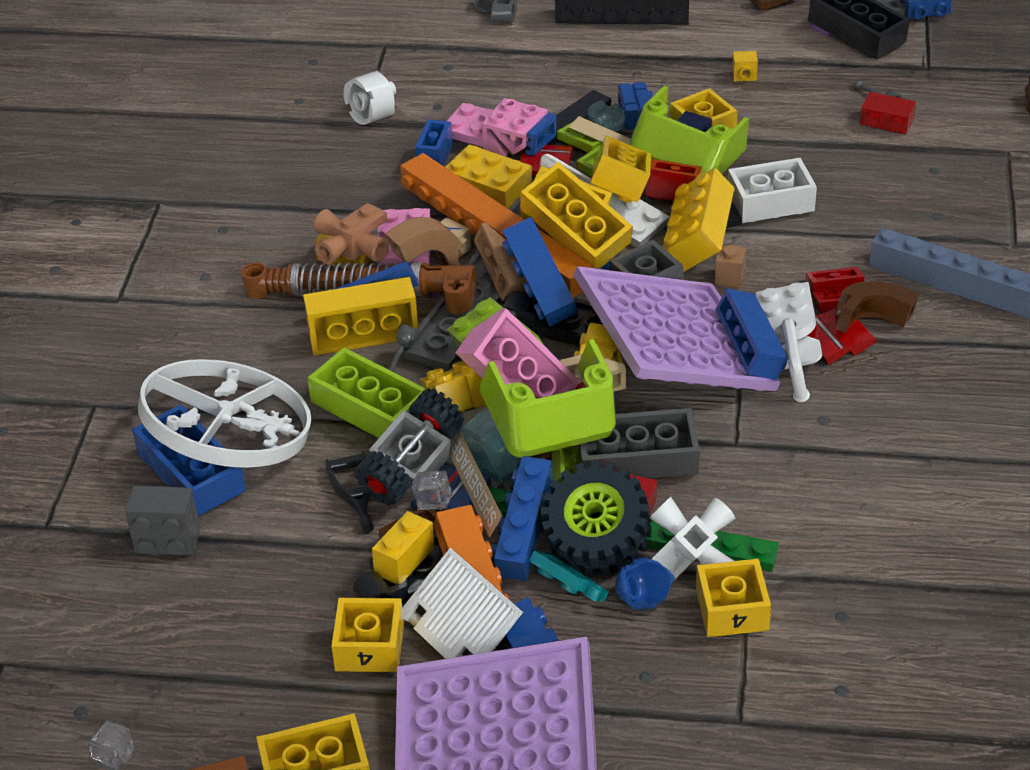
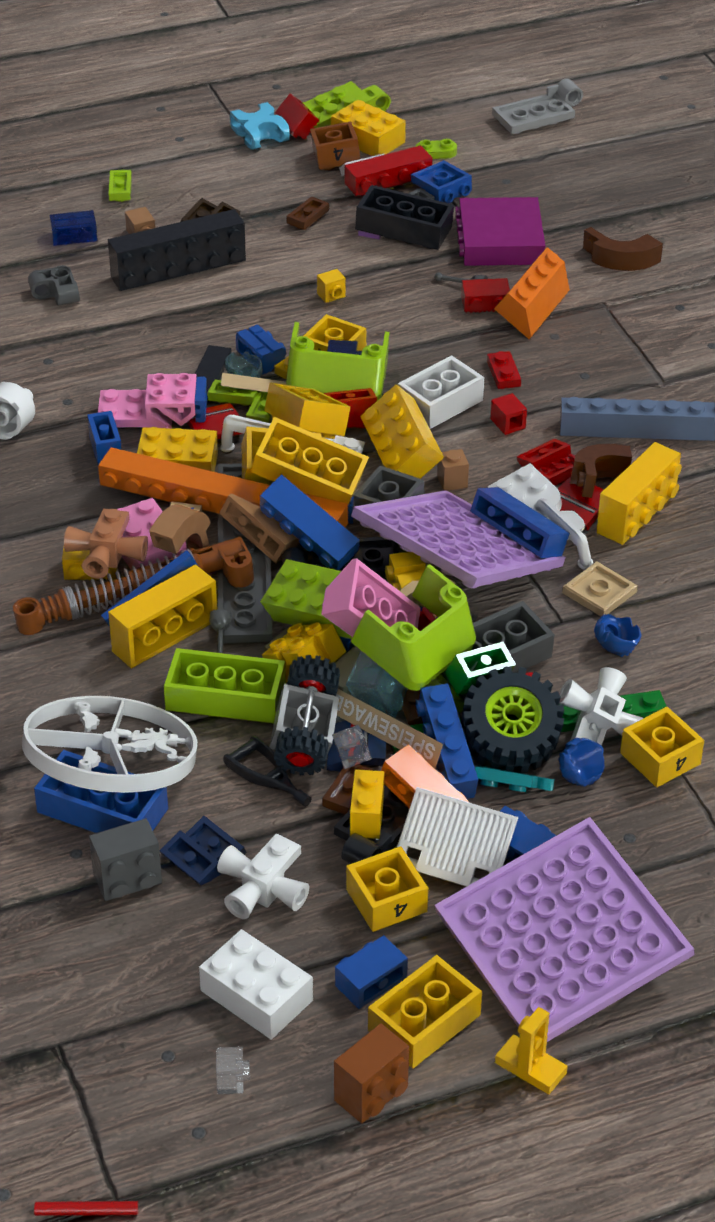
camera: 30 degrees left, 0 degrees up
(192, 677) = (256, 984): none -> white brick
(245, 540) = (199, 850): none -> dark blue slope
(270, 581) = (263, 877): none -> white brick
(299, 703) = (371, 971): none -> blue brick
(588, 448) = (470, 665): none -> green brick
(773, 472) = (617, 634): none -> blue hair
(795, 425) = (599, 589): none -> tan tile
(826, 229) = (508, 413): none -> red brick
(856, 188) = (504, 370): none -> red plate
(894, 342) = (638, 493): none -> yellow brick
(934, 123) = (535, 293): none -> orange slope
(948, 57) = (499, 231): none -> magenta brick

